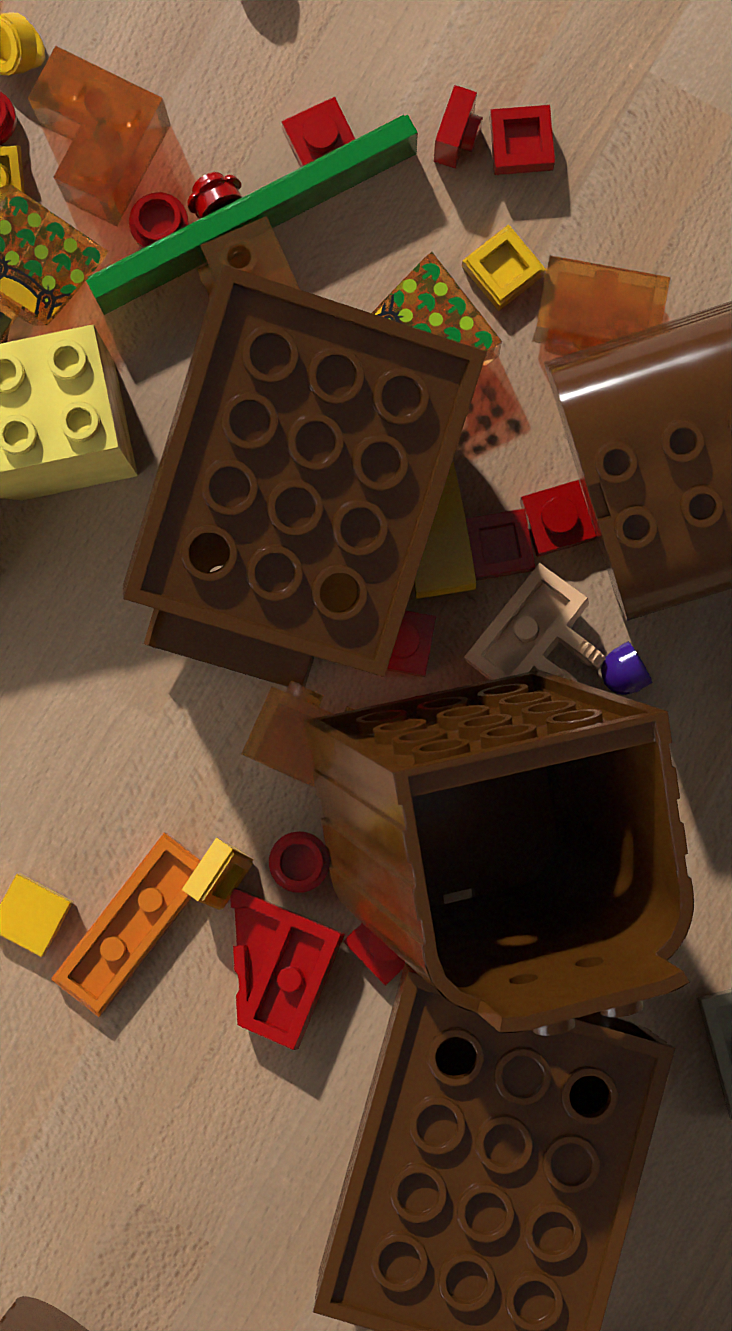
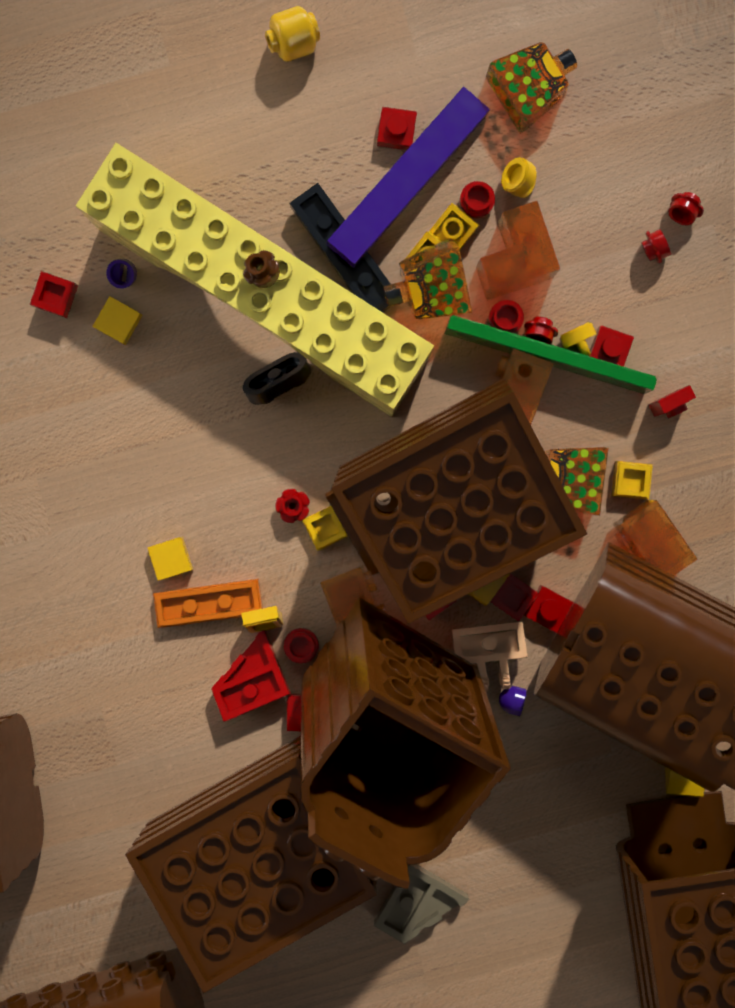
camera: 40 degrees right, 5 degrees up
(124, 715) = (291, 515): none -> red plate
(187, 688) = (324, 528): none -> yellow tile
(267, 159) = (578, 336): none -> yellow tile
(522, 139) = (694, 434): red plate -> none

